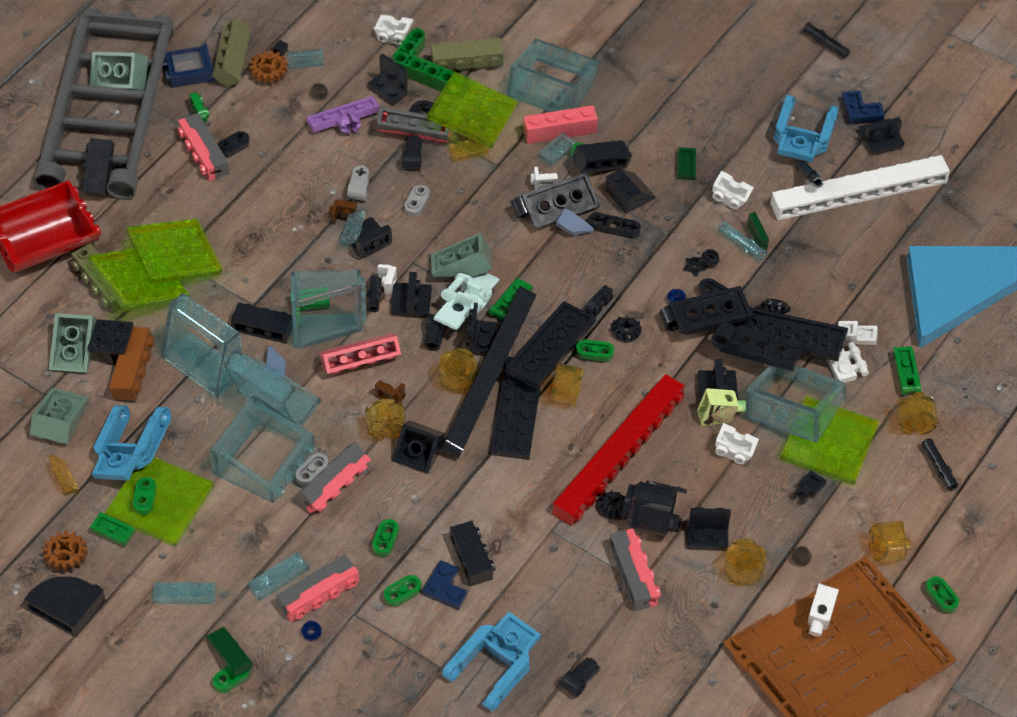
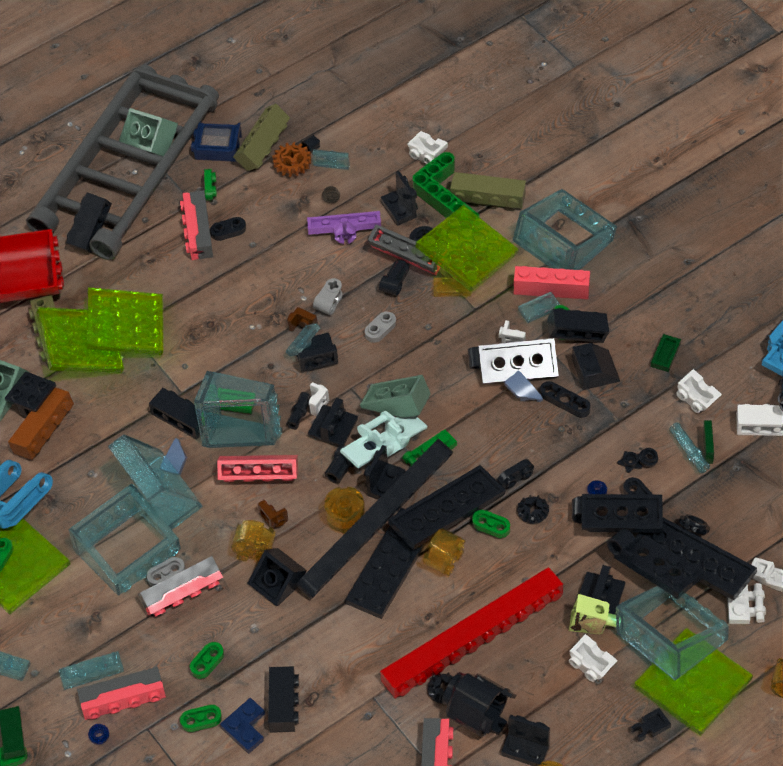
camera: 25 degrees right, 0 degrees up
(191, 353) = (103, 417): clear light blue windscreen -> none

